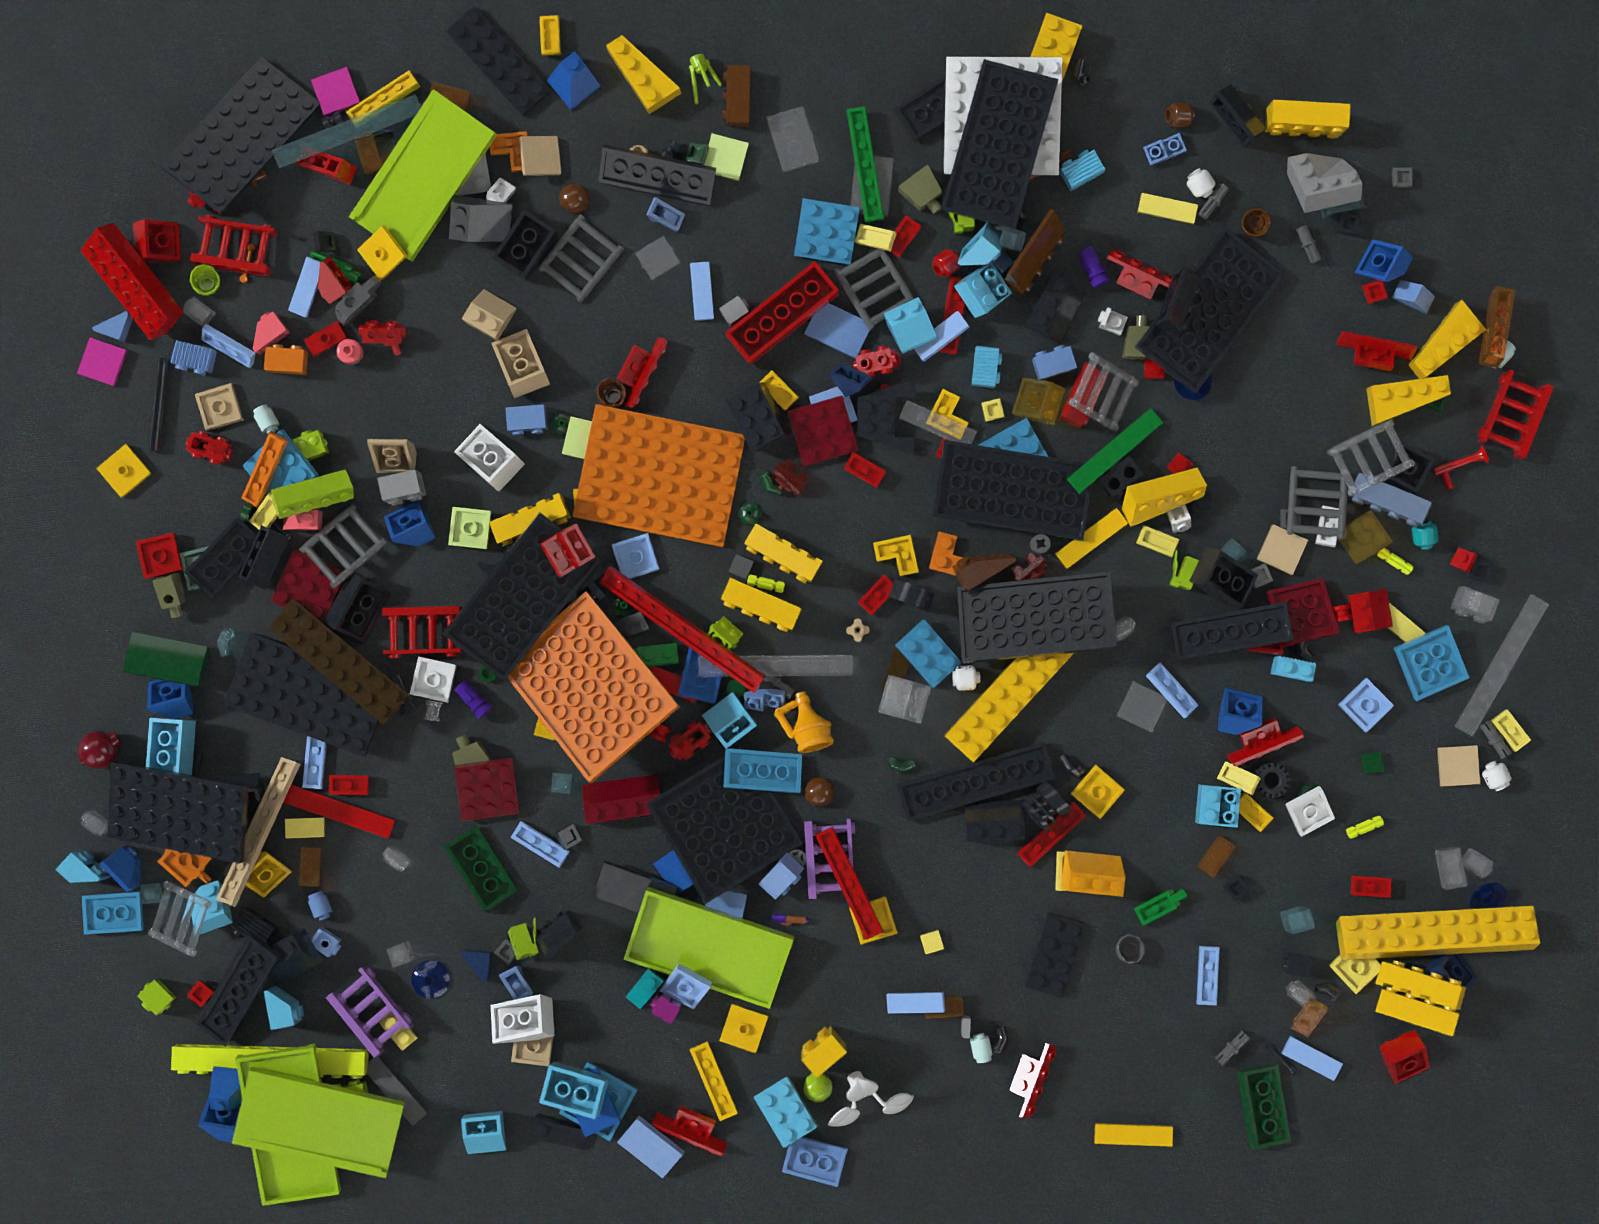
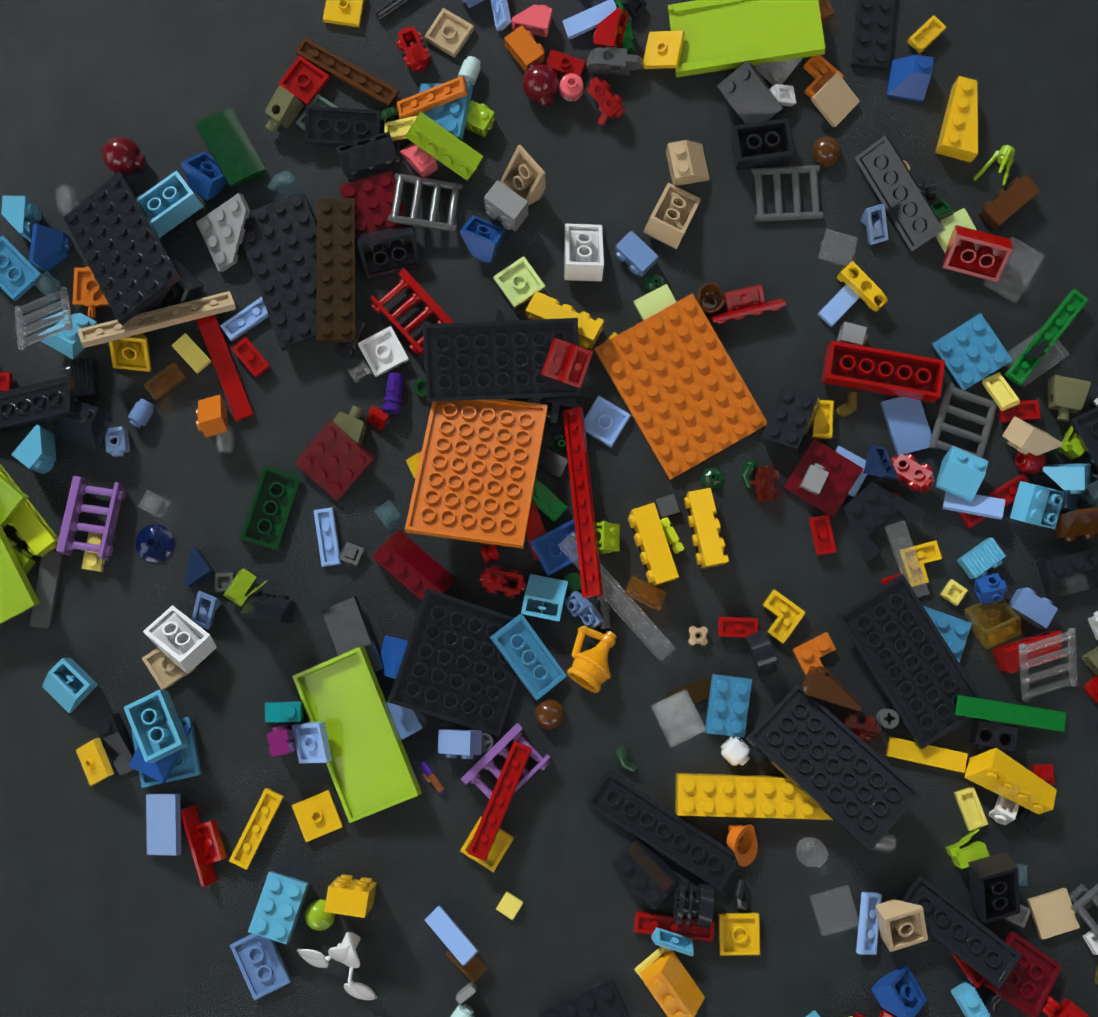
camera: 45 degrees right, 5 degrees down
(181, 515) = (347, 72): none -> reddish brown plate
(230, 720) = (224, 231): none -> light grey plate
(326, 373) = (540, 84): none -> dark red brick
(371, 853) = (212, 416): none -> orange brick
(481, 728) = (377, 418): none -> red plate
(559, 1159) = (94, 761): none -> yellow plate
(704, 268) = (863, 286): none -> yellow leg
(755, 158) = (977, 253): none -> red slope
(787, 361) = (849, 407): none -> clear yellow arm
(792, 641) = (645, 593): none -> clear orange plate
(817, 440) = (814, 478): none -> light grey brick
(869, 185) = (1037, 351): none -> black plate
(928, 249) = (1029, 438): none -> tan slope
(1012, 382) = (990, 588): none -> blue brick
(1036, 731) = (743, 843): none -> orange piece
(1060, 844) = (673, 941): none -> medium azure slope
(1085, 687) = (811, 852): none -> clear hair
(1191, 668) = (901, 924): none -> tan slope

